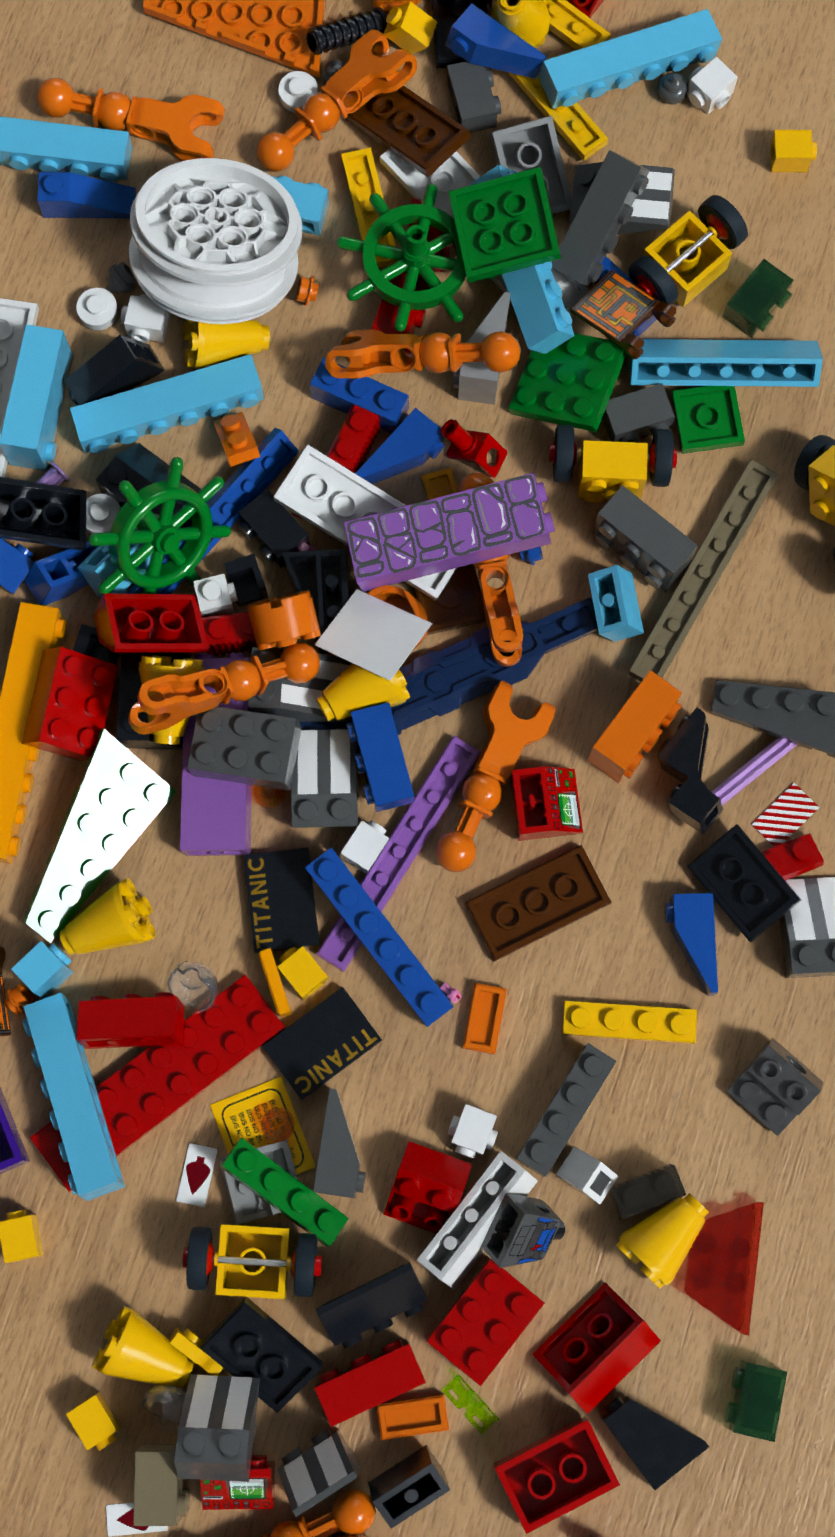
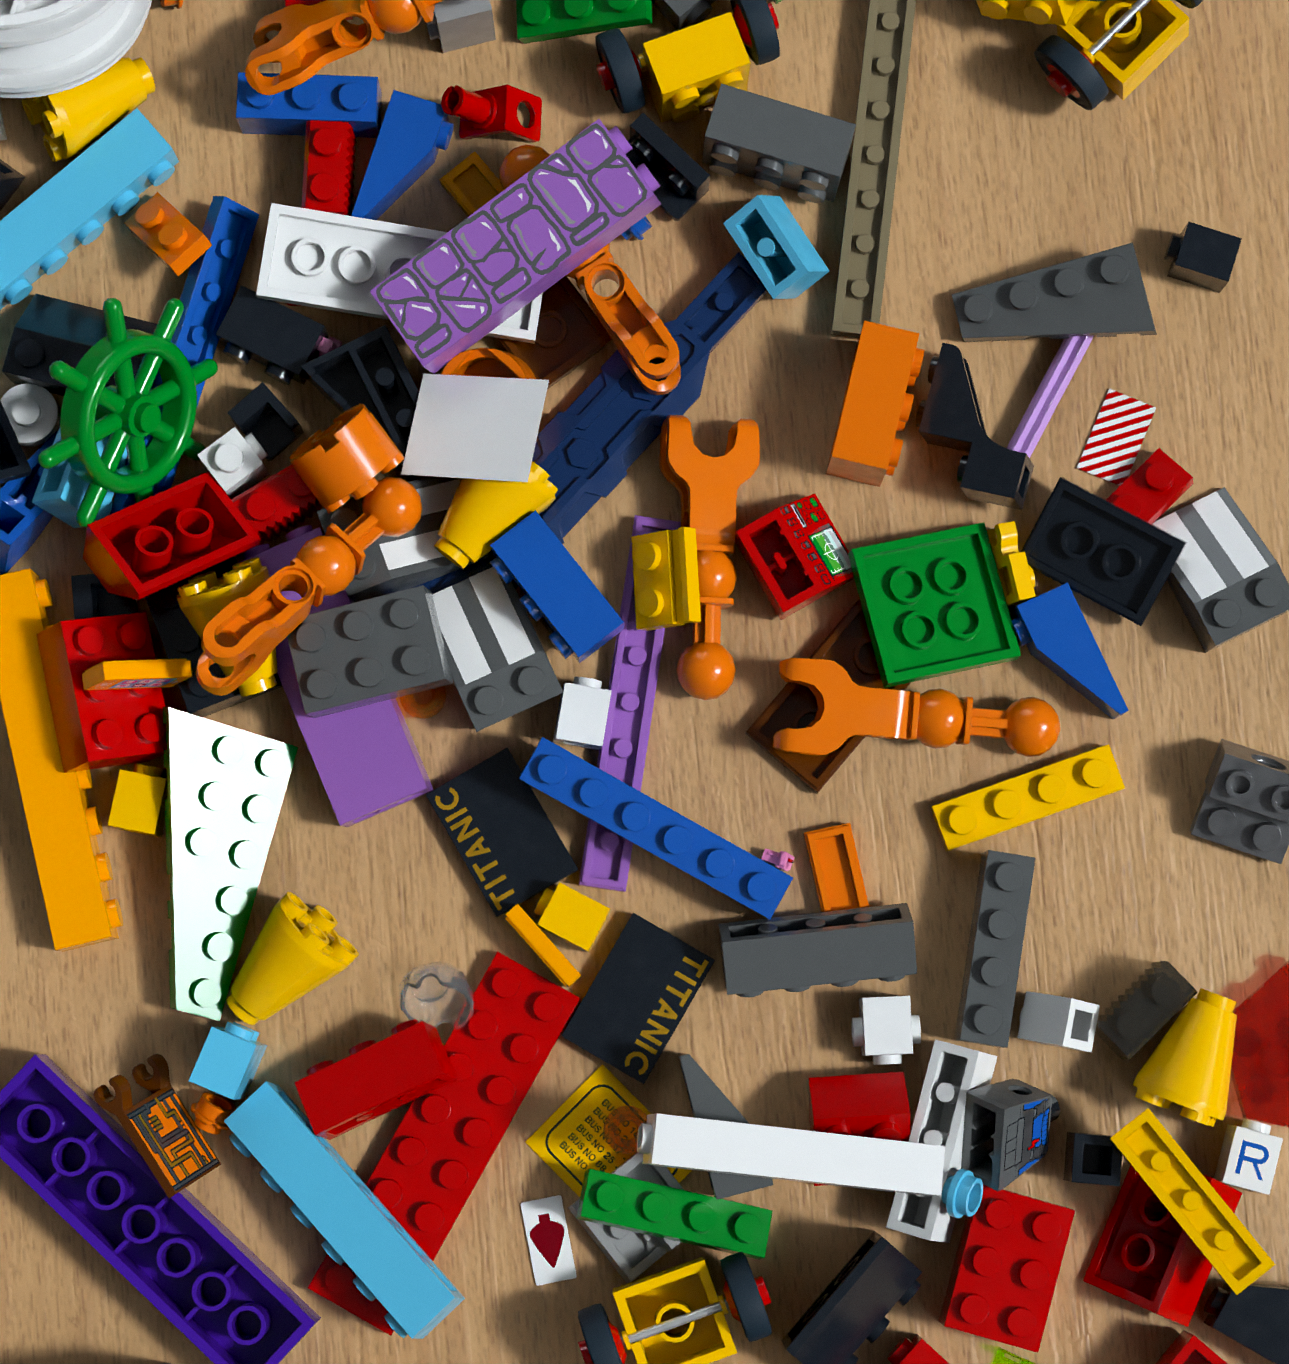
camera: 25 degrees left, 5 degrees up
(61, 782) = (140, 801): none -> yellow brick
(93, 699) = (136, 674): none -> light orange tile
(373, 1182) = (791, 1154): none -> white brick
(450, 1061) = (818, 949): none -> dark grey brick
(454, 782) = (666, 579): none -> yellow plate
(475, 1259) = (962, 1194): none -> medium azure plate
(570, 533) = (679, 176): none -> black bracket
(572, 1274) = (1092, 1159): none -> black brick
(588, 943) = (933, 717): none -> orange piece
(620, 871) = (934, 604): none -> green plate
(623, 1329) = (1192, 1201): none -> yellow plate
(675, 1319) = (1249, 1156): none -> white brick
(679, 871) = (1013, 569): none -> yellow plate

